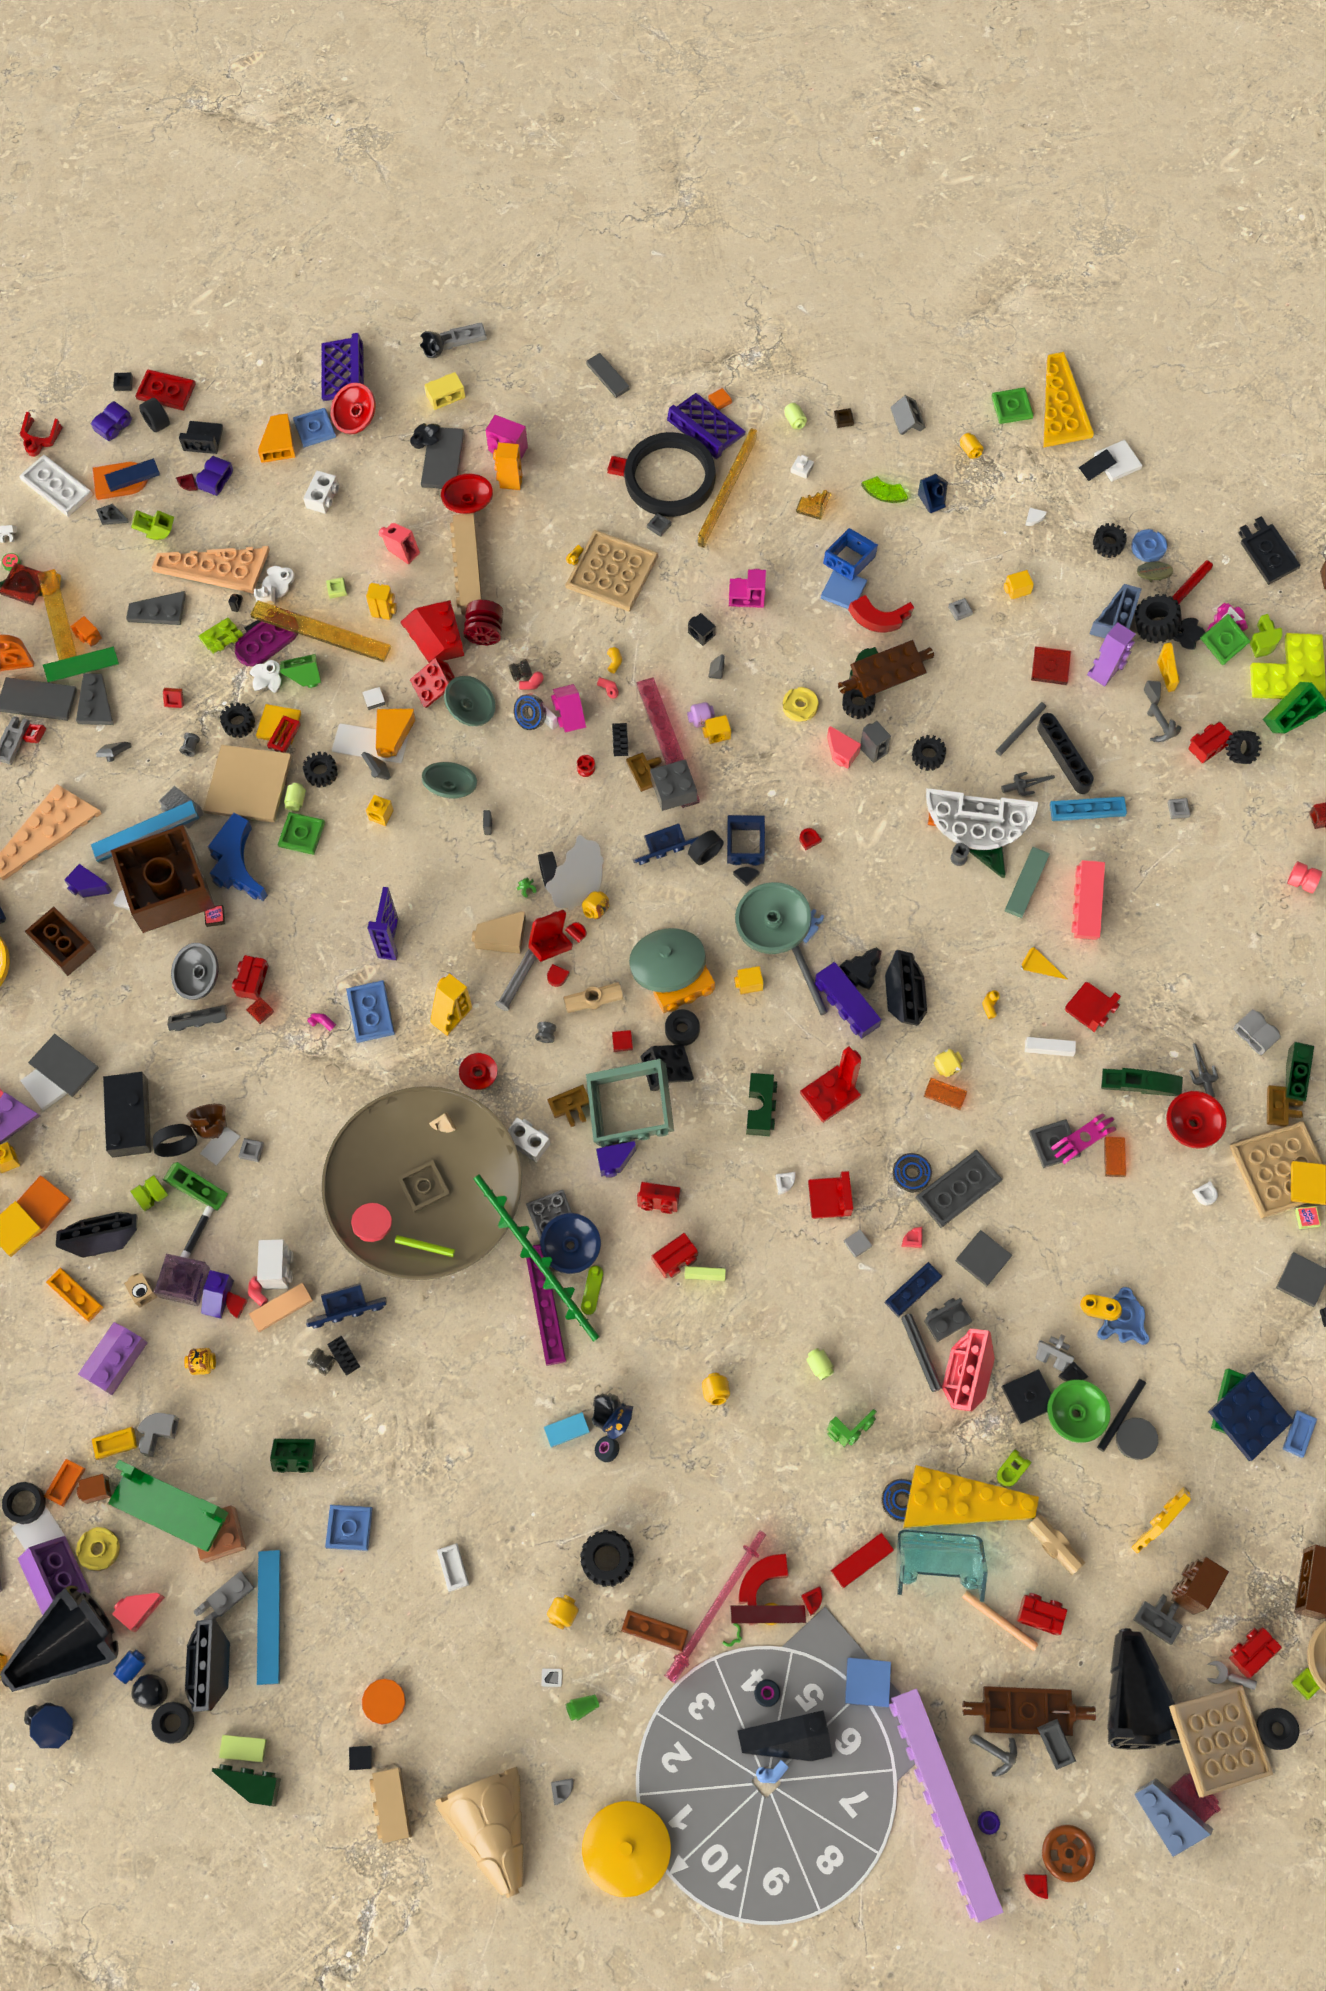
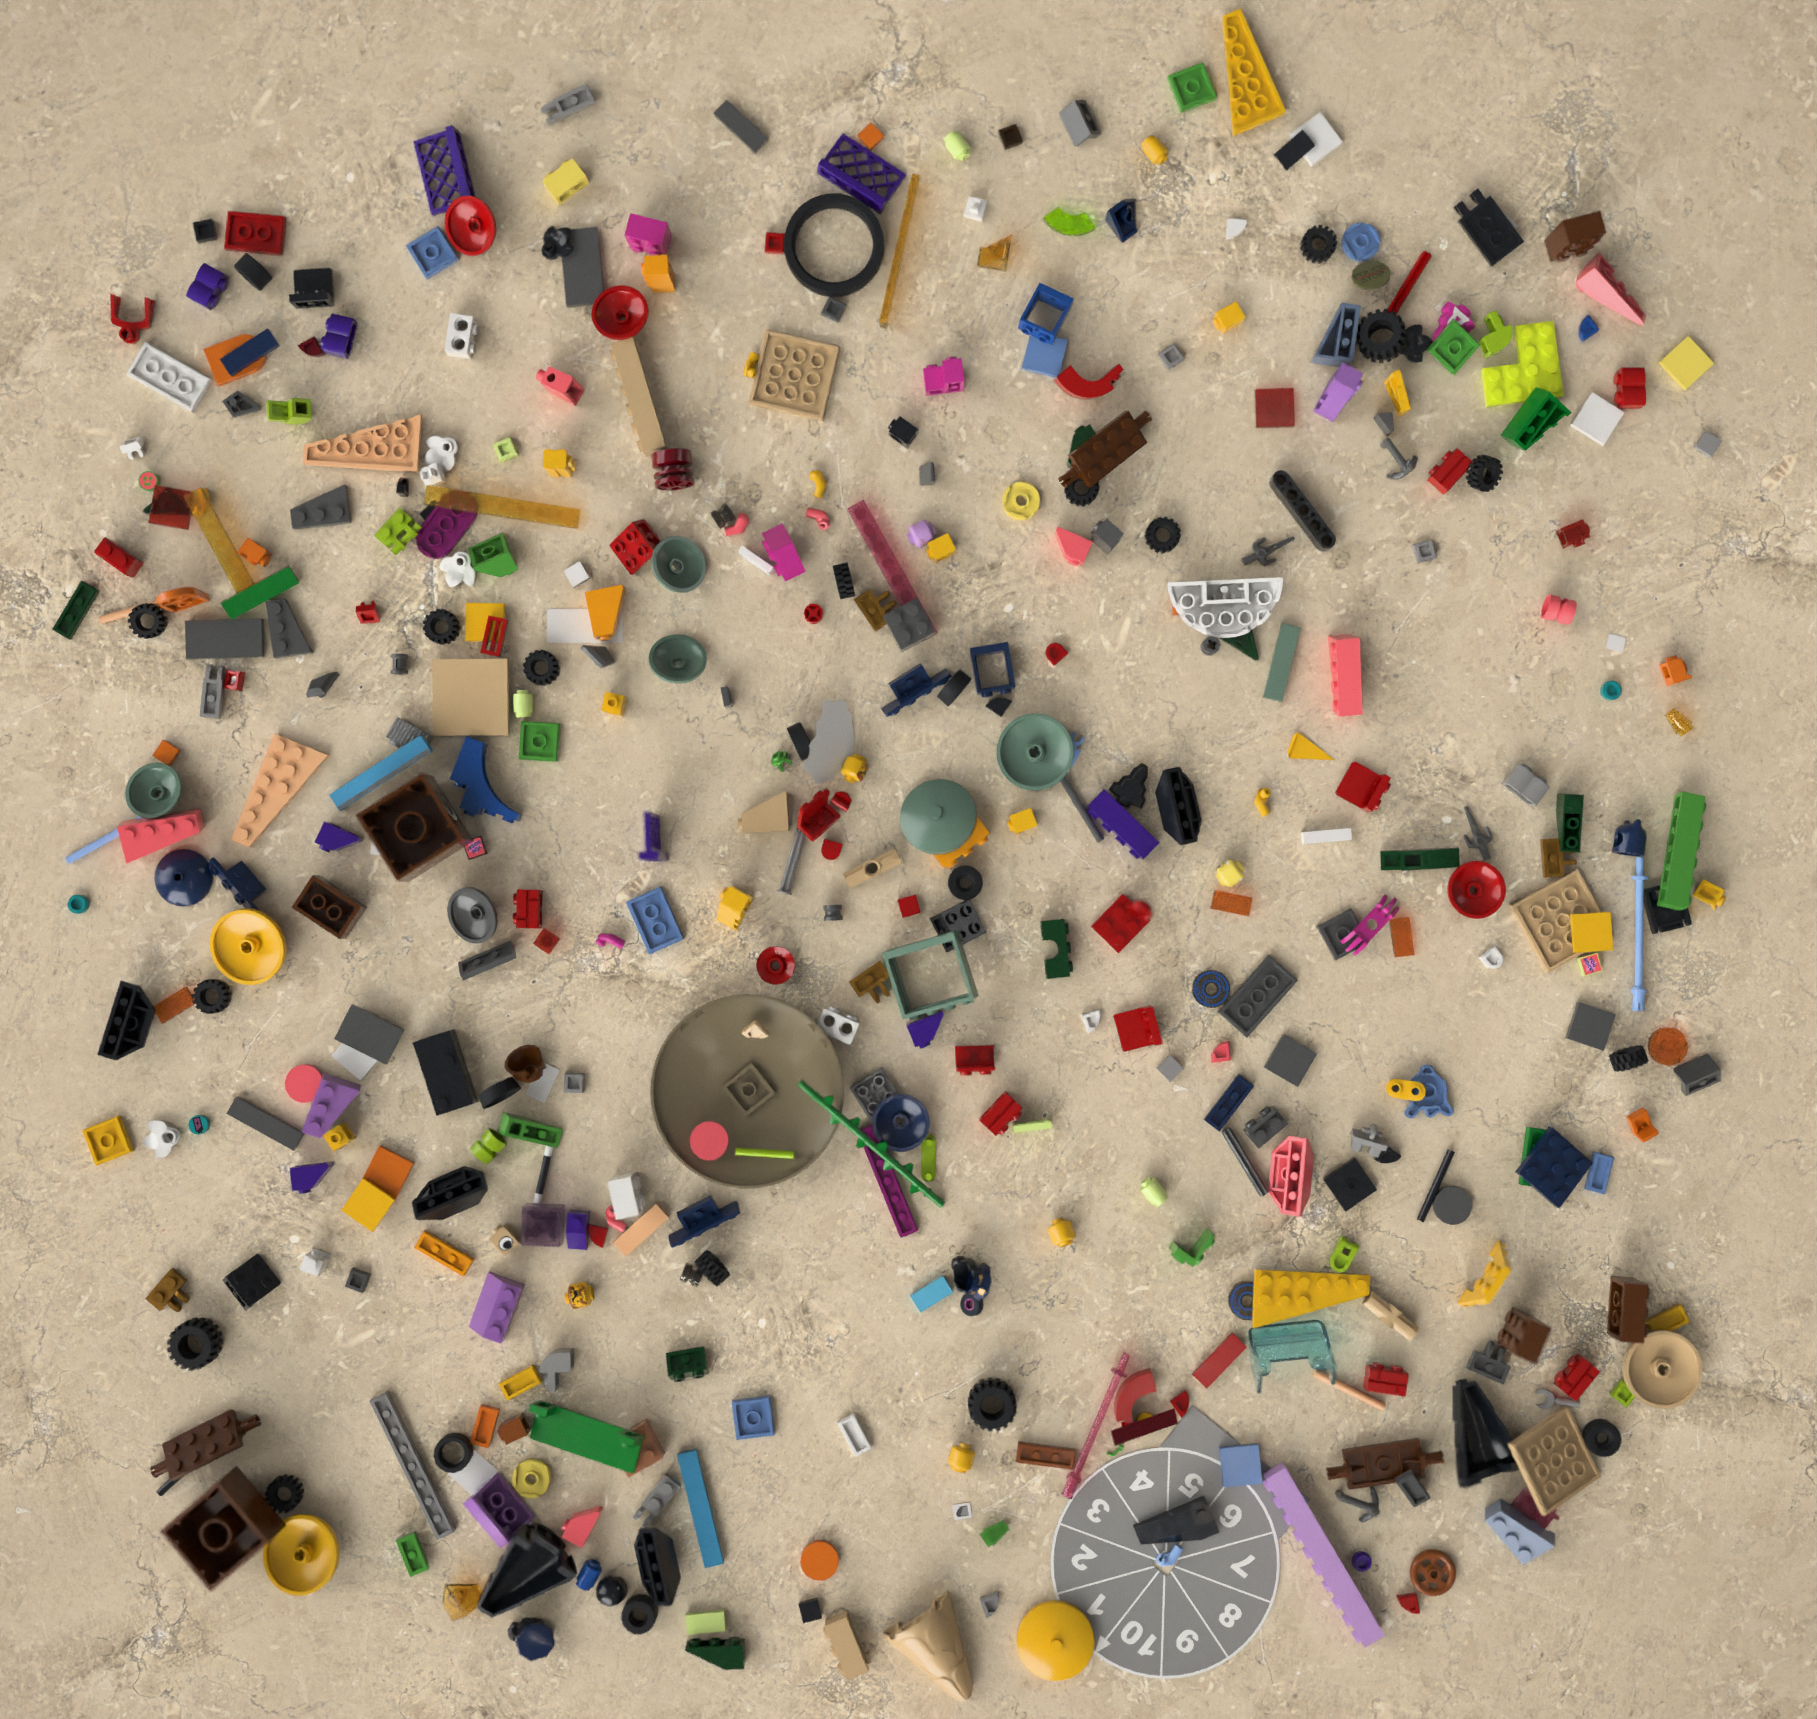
camera: 10 degrees left, 20 degrees up
(277, 440) = (397, 278): light orange slope -> none
(432, 344) = (538, 123): black hair -> none
(435, 631) = (623, 486): red wedge -> none
(521, 711) = (740, 573): clear smoke tile -> none
(759, 1693) = (1154, 1483): black wheel -> none
(1020, 729) = (1252, 489): dark grey bar -> none
(1088, 808) = (1333, 570): dark azure plate -> none
(1088, 1402) = (1410, 1194): bright green dish -> none

